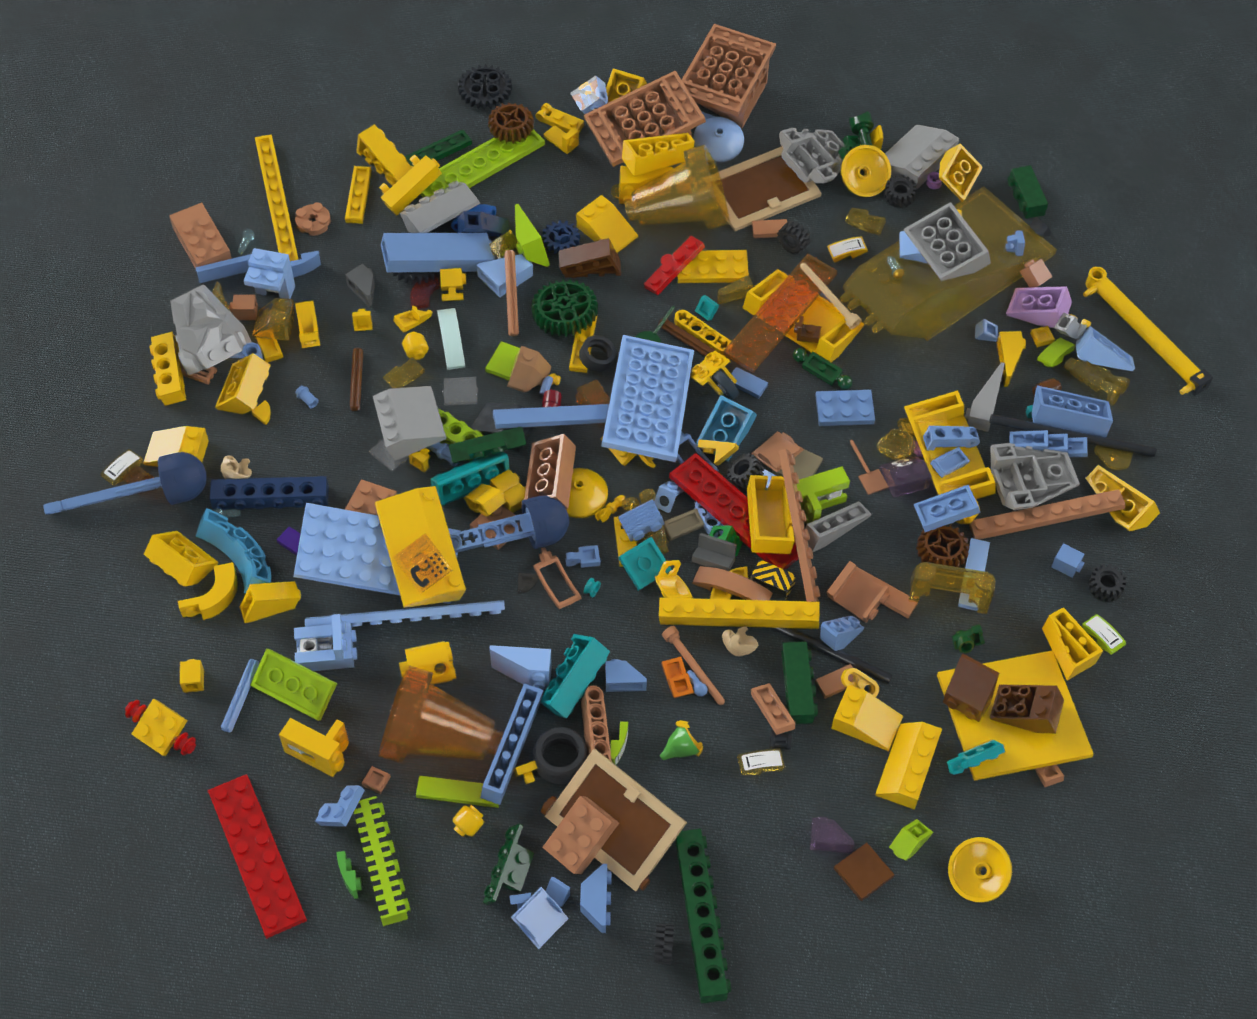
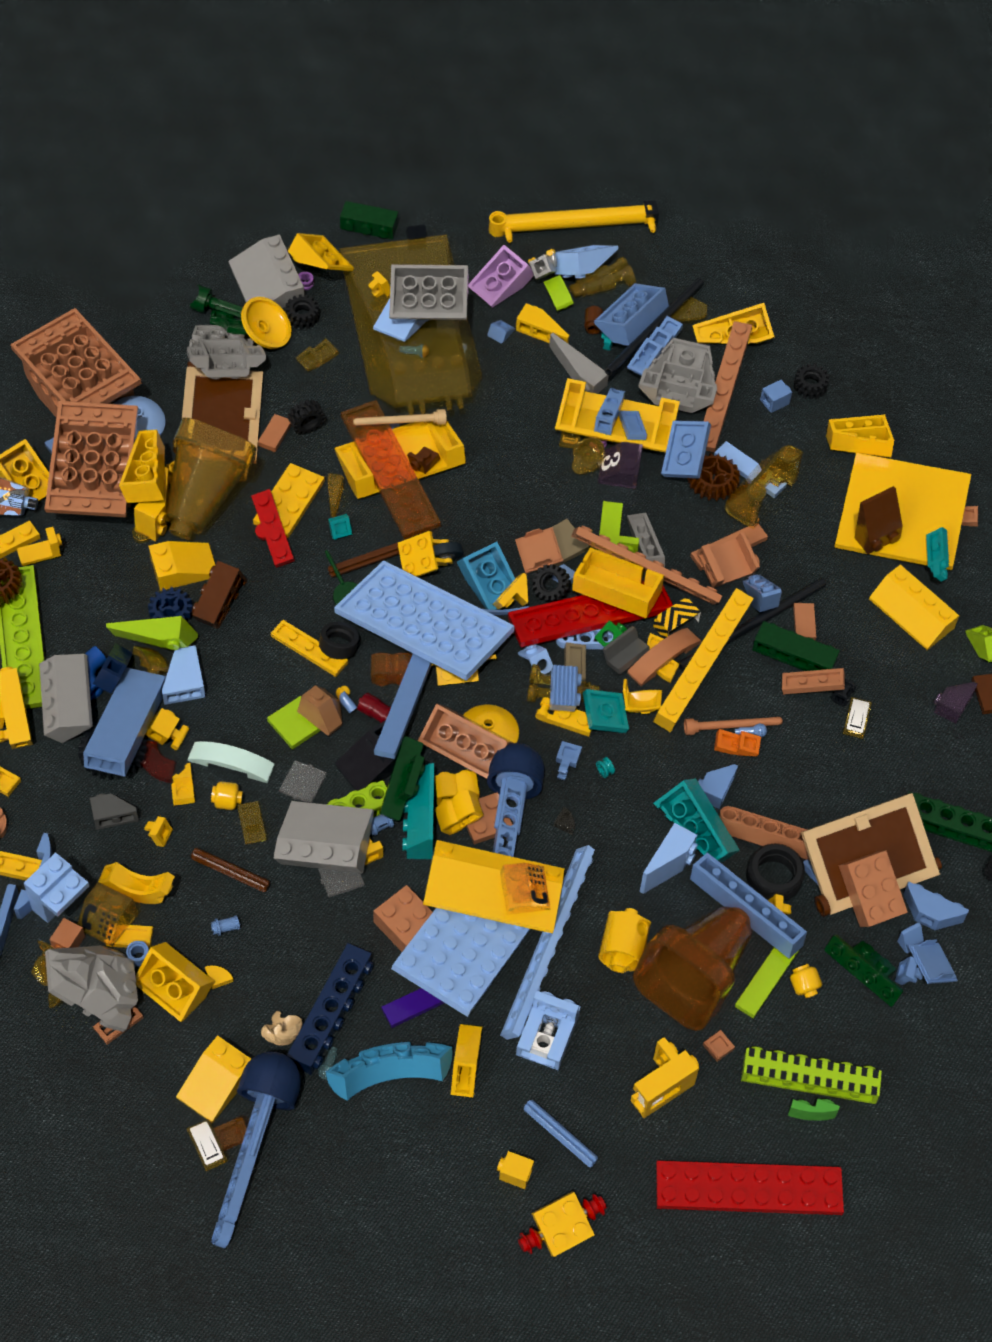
camera: 65 degrees left, 0 degrees up
(167, 368) = (72, 1032): yellow brick -> none
(179, 557) = (363, 1127): yellow slope -> none
(217, 598) = (426, 1097): yellow arch -> none
(293, 684) = (578, 1075): lime tile -> none
(340, 813) = (749, 1085): medium blue plate -> none
(511, 292) = (219, 678): nougat axle -> none
(546, 559) = (557, 795): nougat sword -> none
(559, 307) = (263, 638): dark green gear -> none
(611, 508) = (523, 712): yellow piece -> none
(618, 746) = (780, 813): lime slope -> none
(681, 743) = (812, 769): bright green hat -> none
(701, 334) = (363, 542): yellow beam -> none
(739, 643) = (731, 675): tan hair -> none
(749, 383) = (452, 532): medium blue tile -> none
(822, 368) = (467, 470): dark green plate -> none
(844, 248) = (341, 385): slope -> none
(845, 407) = (519, 476): medium blue plate -> none
(859, 681) = (820, 604): yellow plate -> none
(866, 718) = (852, 619): yellow slope -> none
(873, 480) = (607, 493): nougat piece -> none
(877, 137) = (226, 294): yellow slope -> none
(967, 639) = (815, 506): dark green plate -> none
(1016, 243) = (432, 254): medium blue tile -> none
(1028, 707) = (914, 491): reddish brown slope -> none
(1035, 273) = (468, 257): nougat brick -> none
(1042, 336) = (531, 294): yellow tile -> none
(1105, 634) = (859, 408): slope -> none

